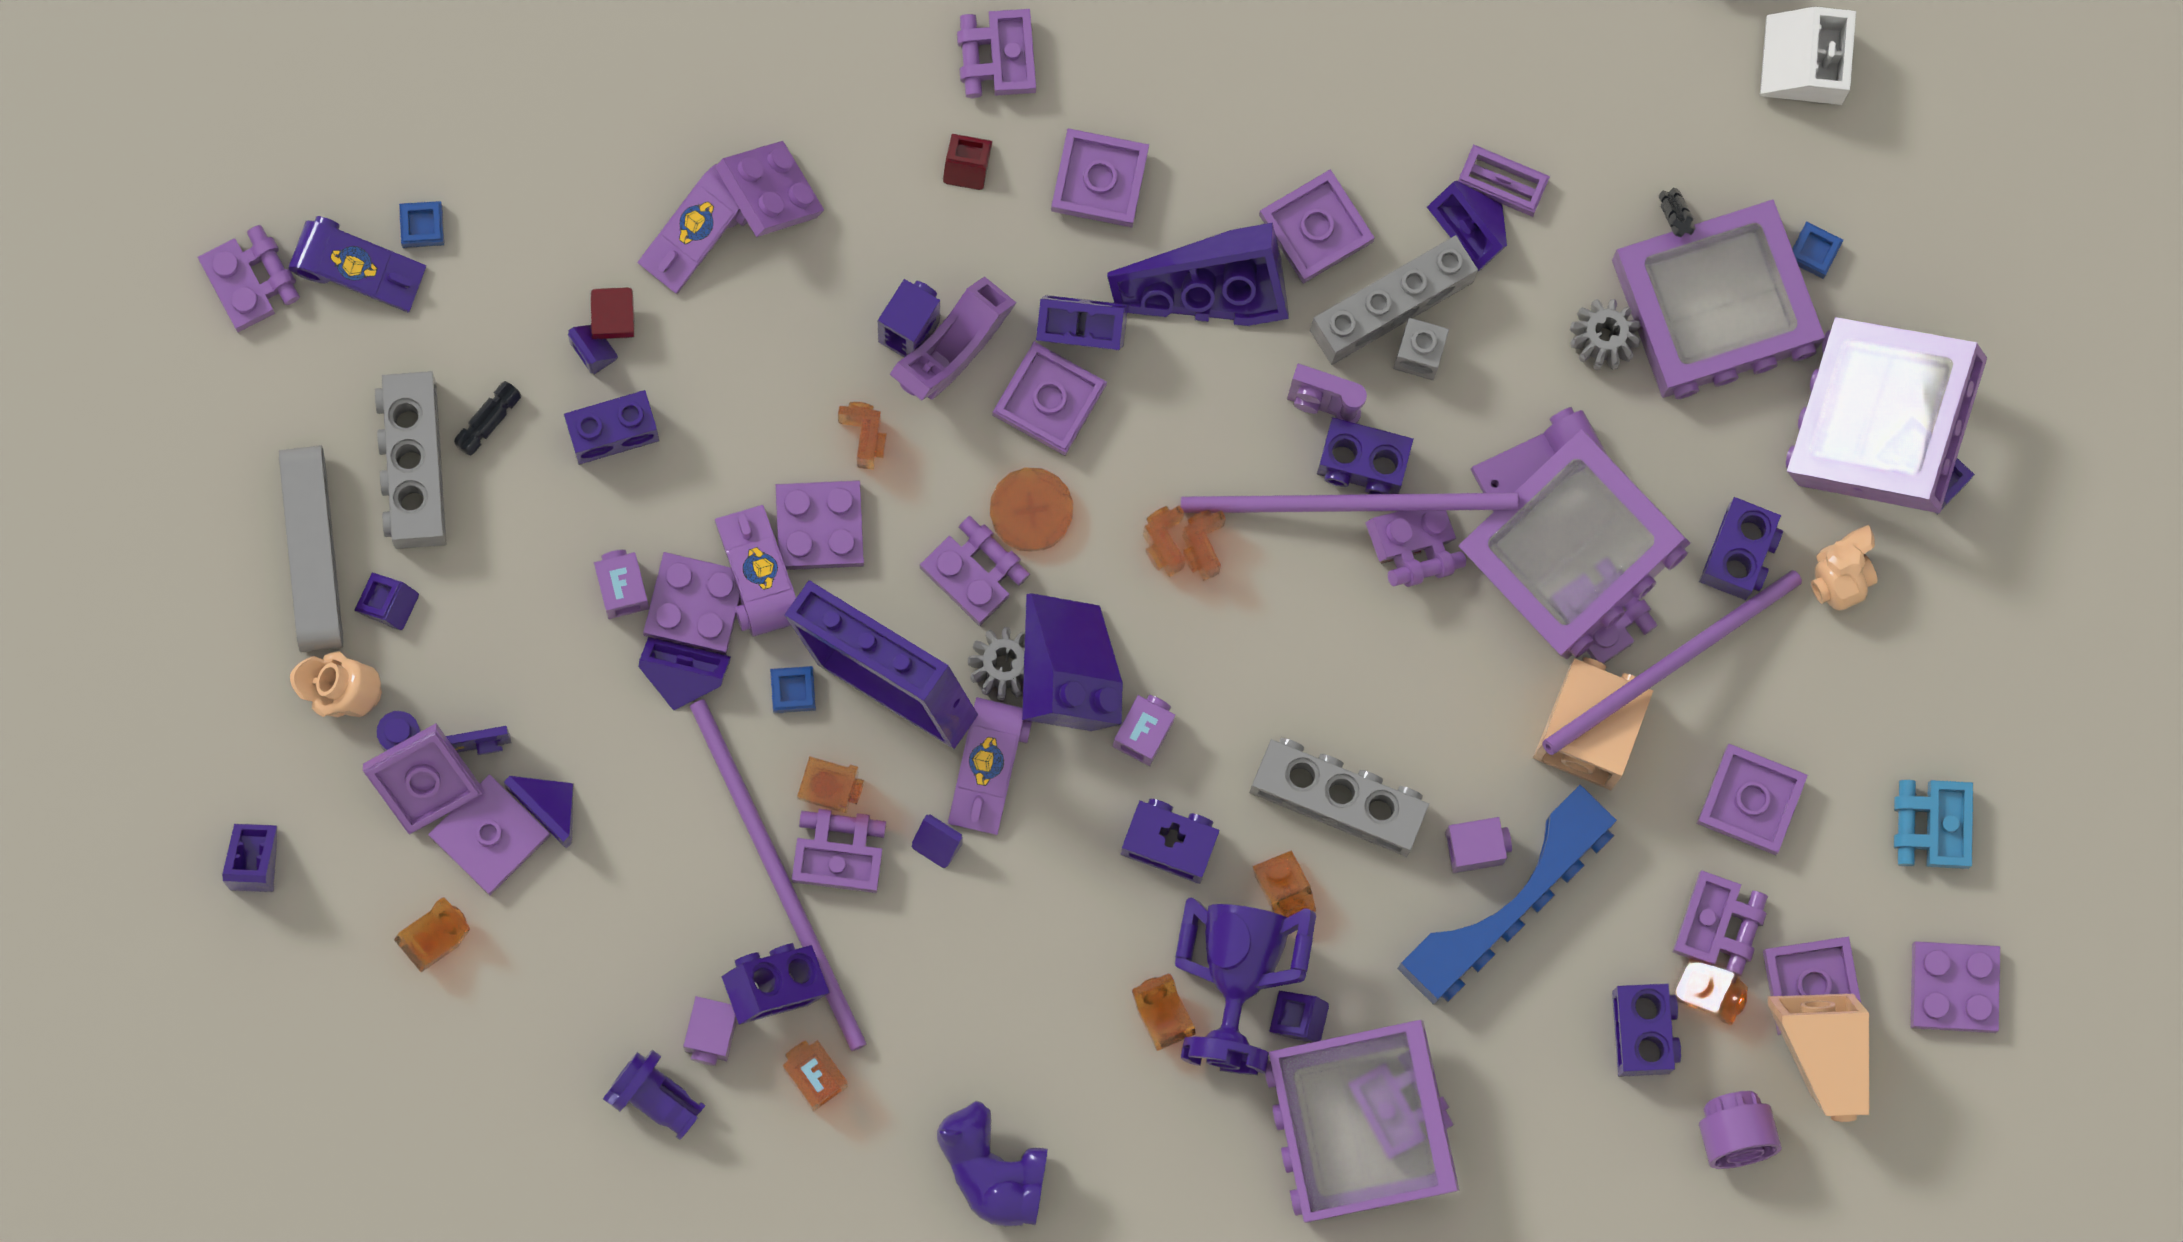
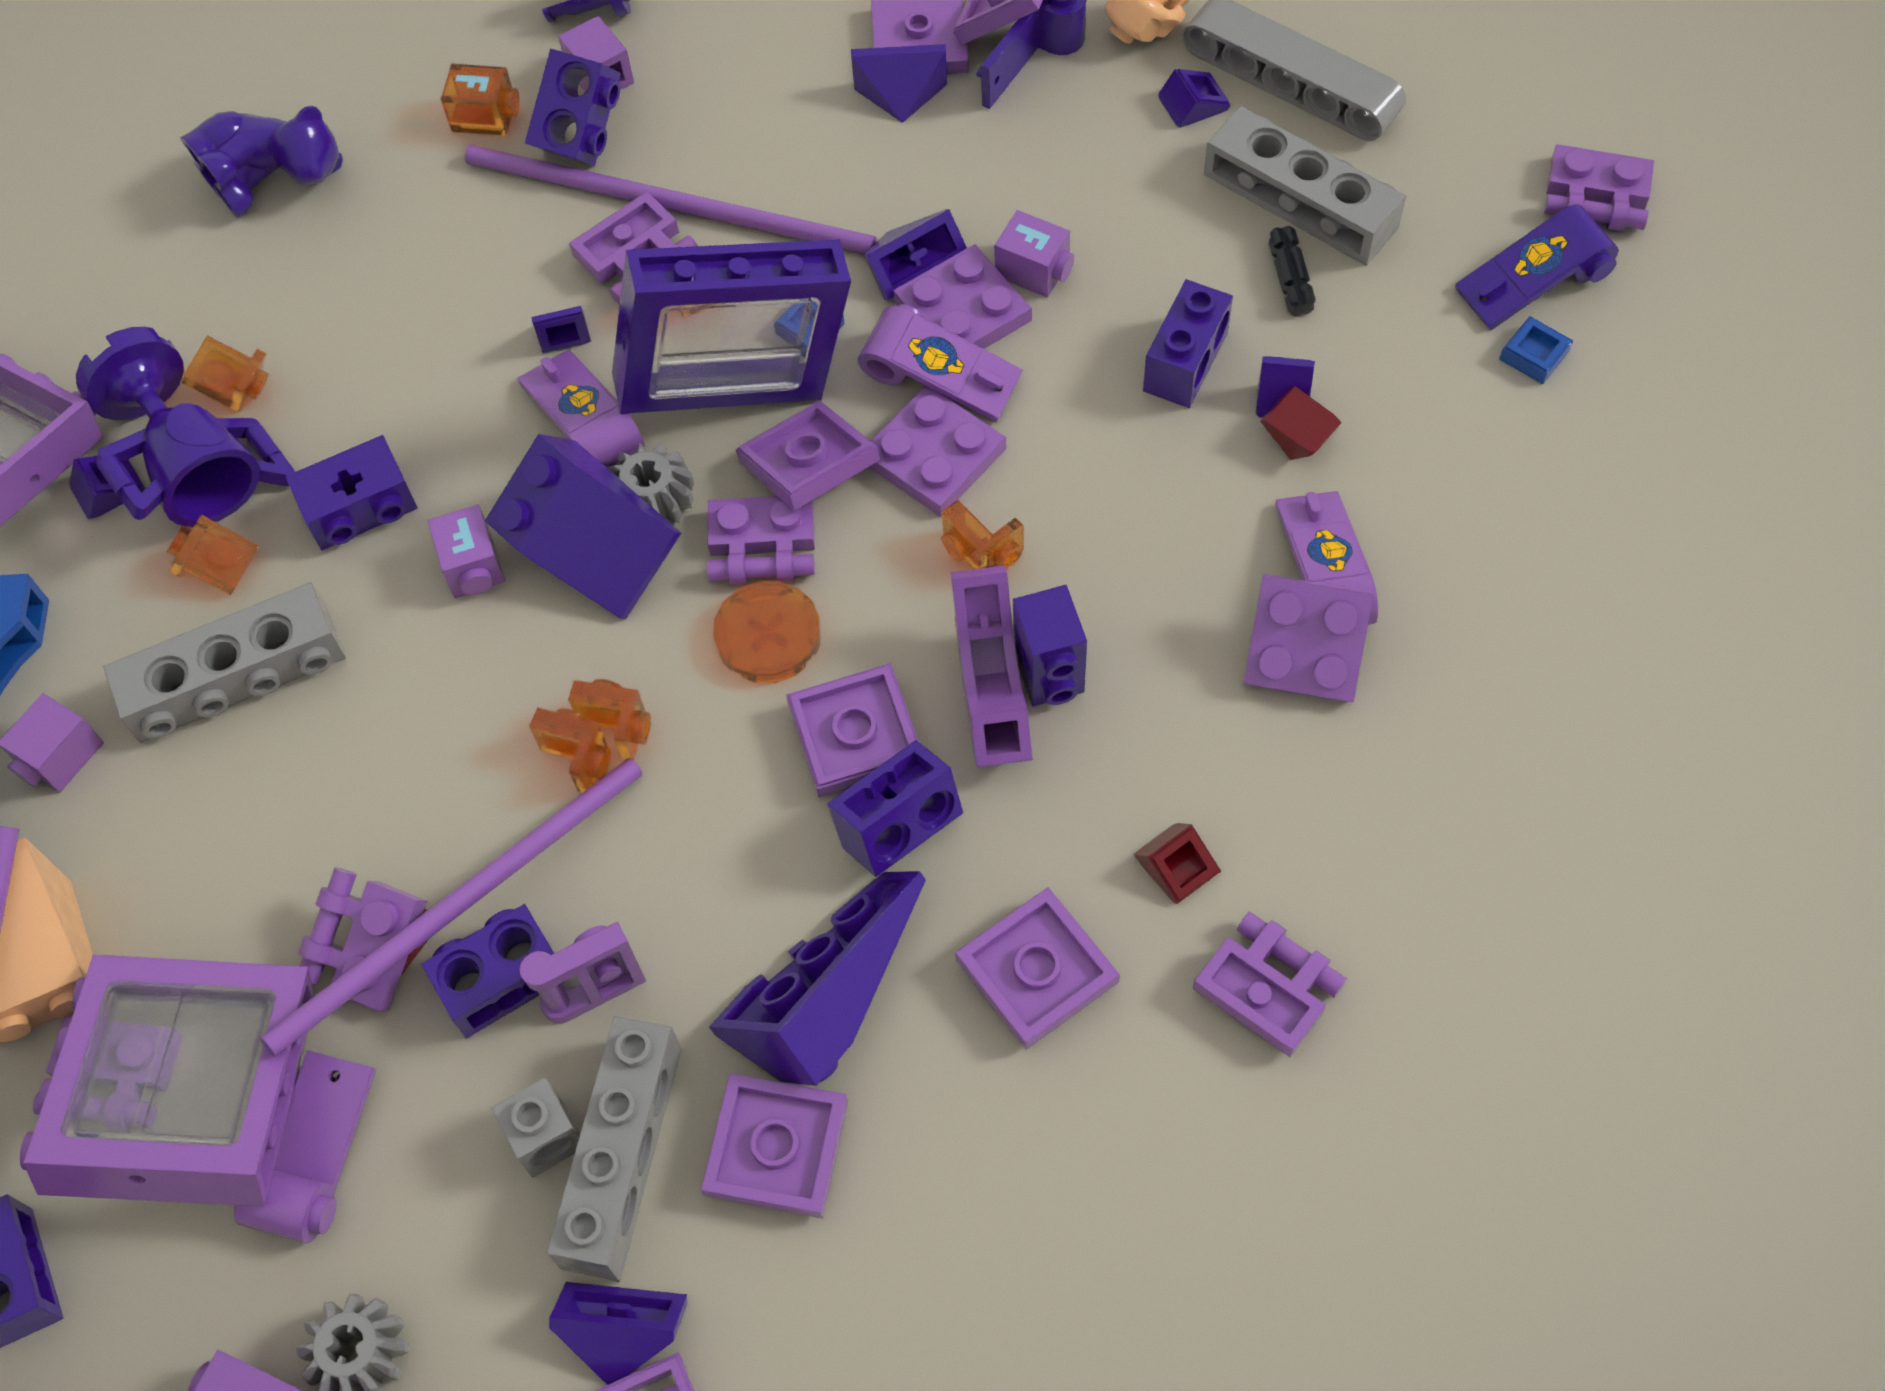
camera: 145 degrees right, 15 degrees down
(899, 586) = (807, 455): none -> medium lavender plate

